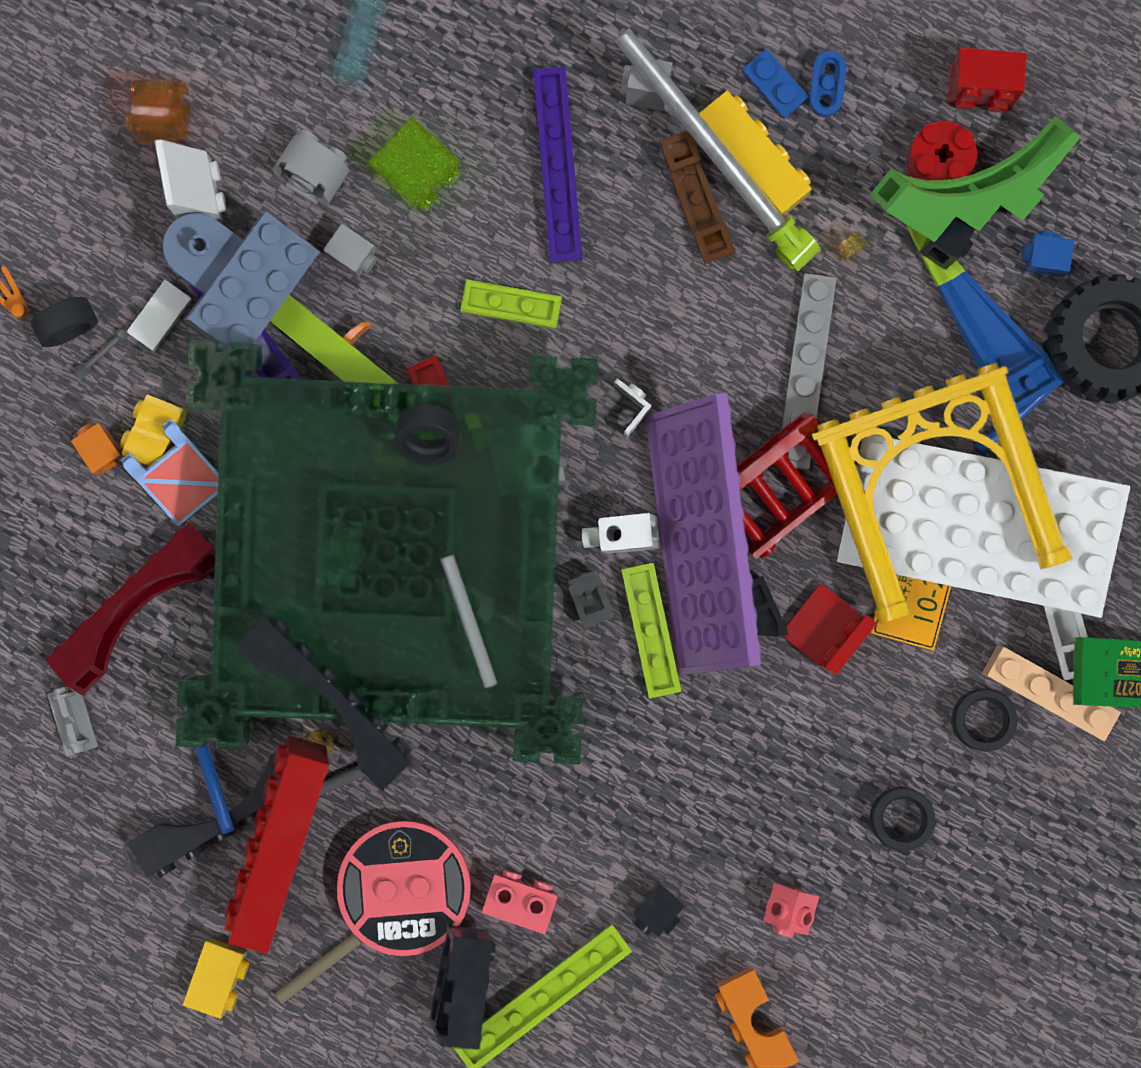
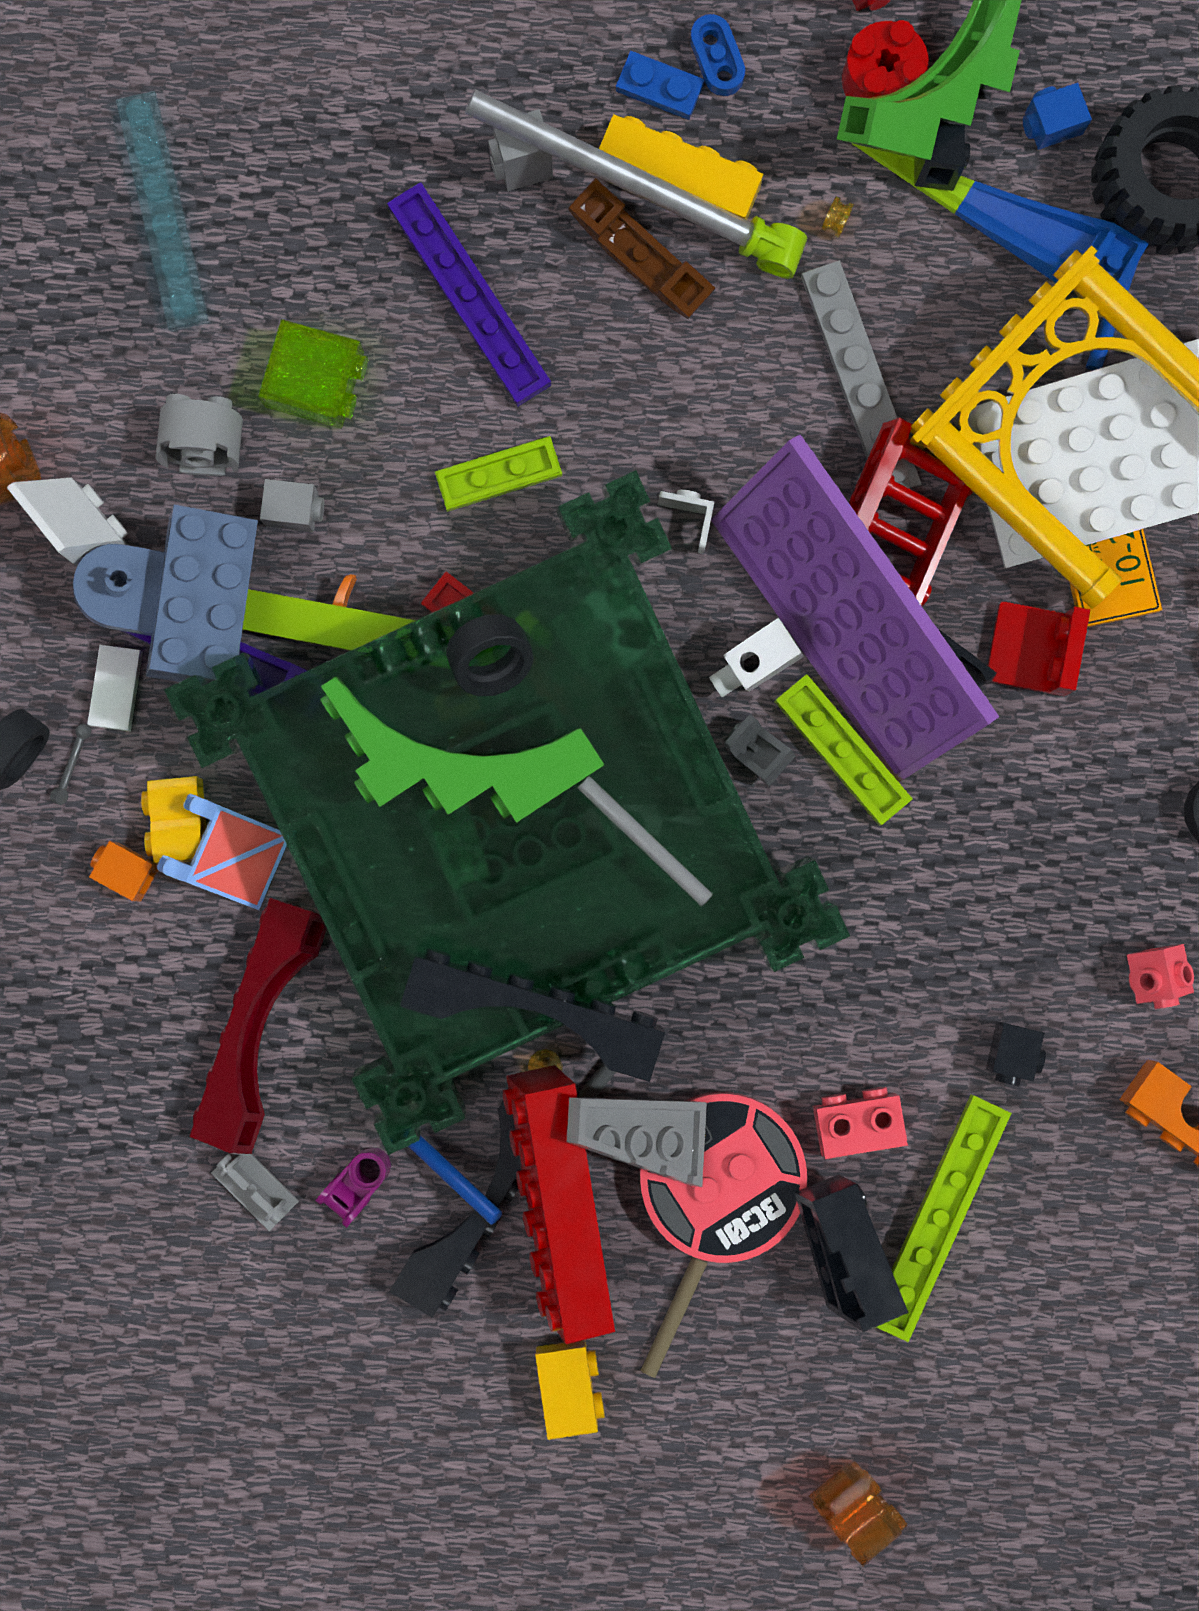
camera: 30 degrees left, 0 degrees up
(138, 757) = (351, 1188): none -> magenta piece
(361, 826) = (643, 1133): none -> light grey wing
(401, 534) = (397, 762): none -> bright green arch

